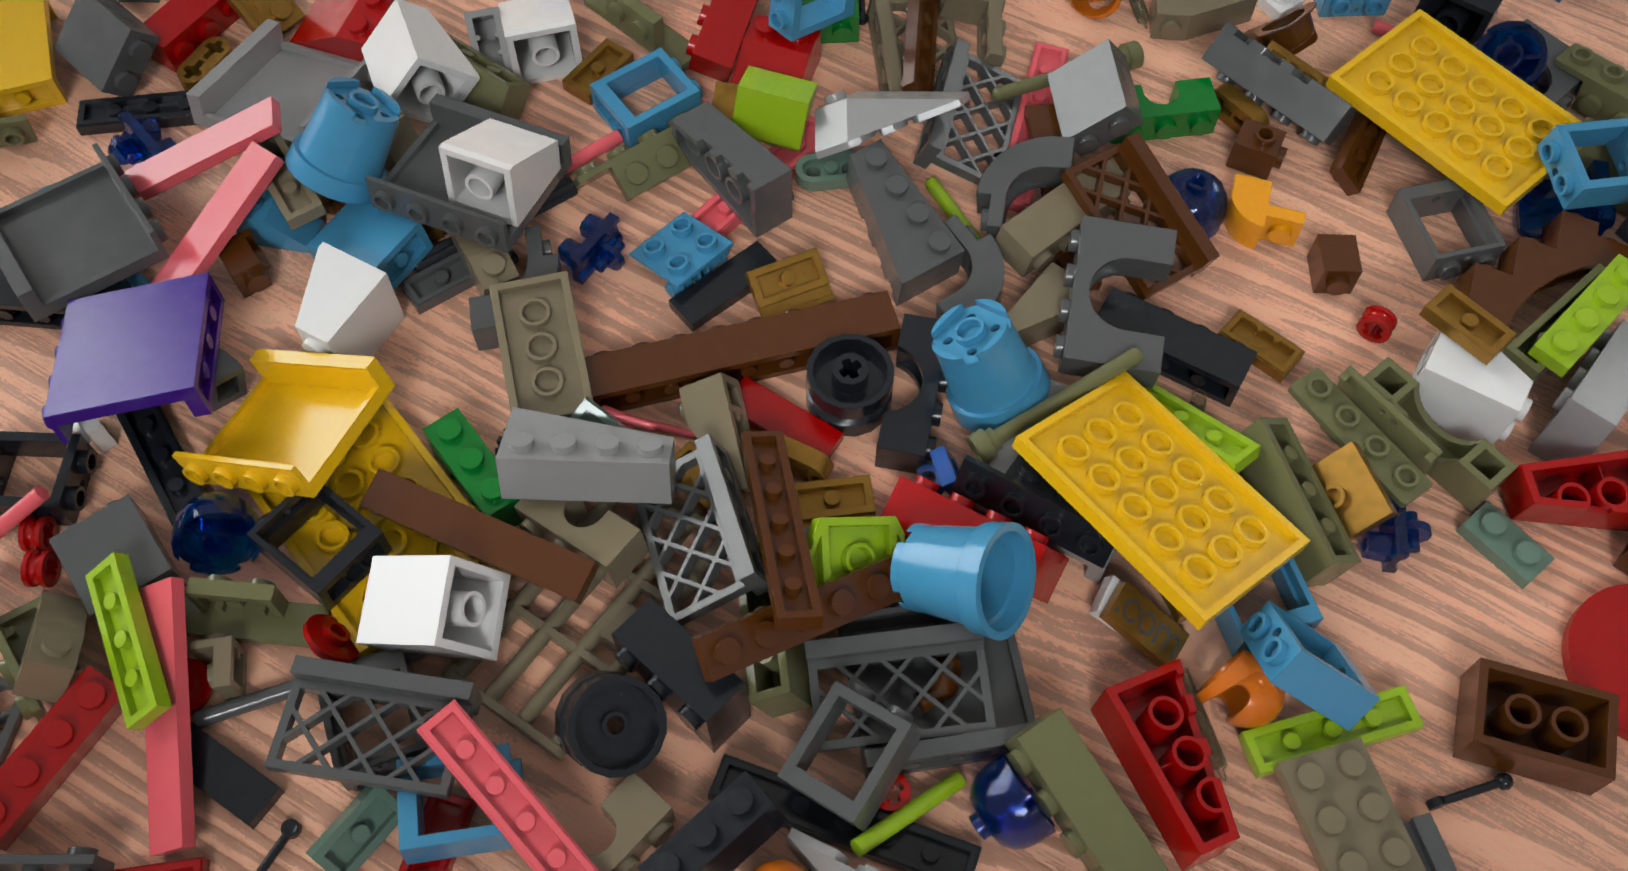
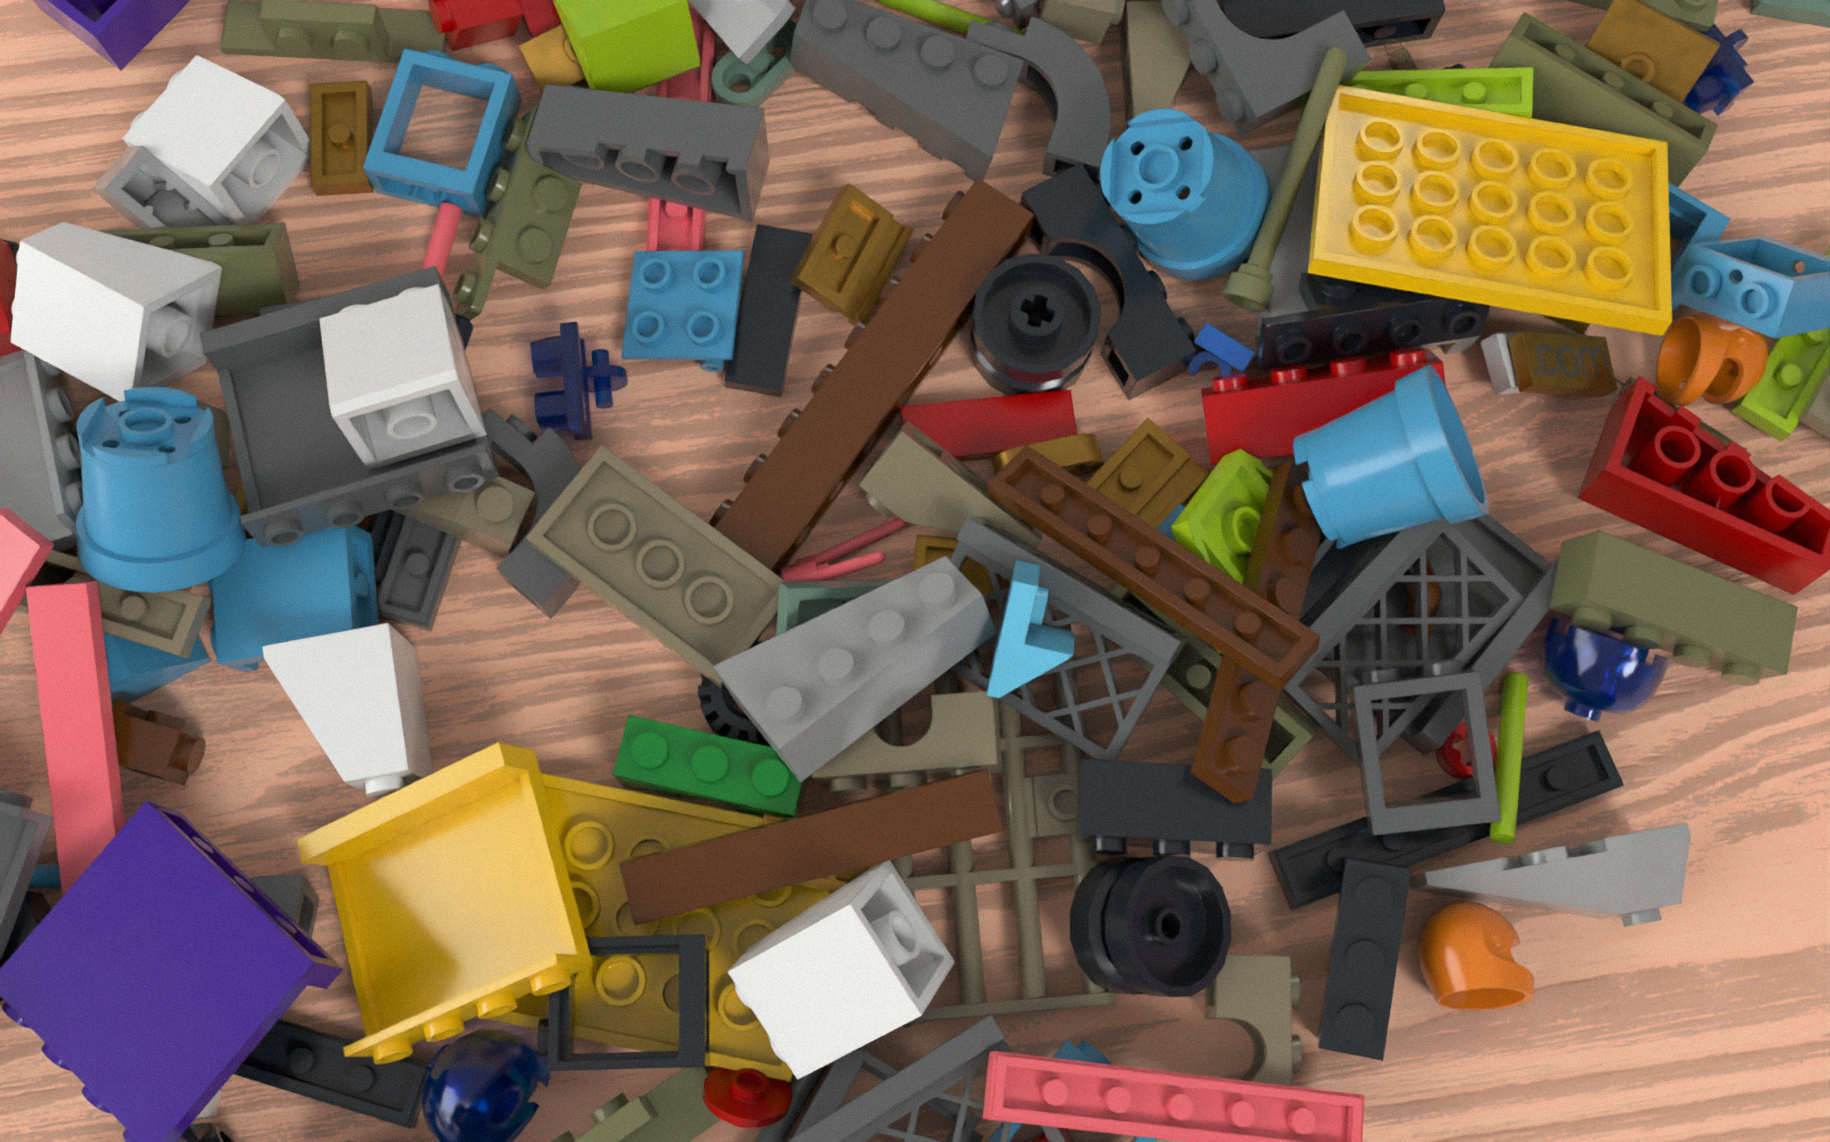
camera: 45 degrees left, 15 degrees up
(674, 508) = (1023, 644): none -> medium azure slope

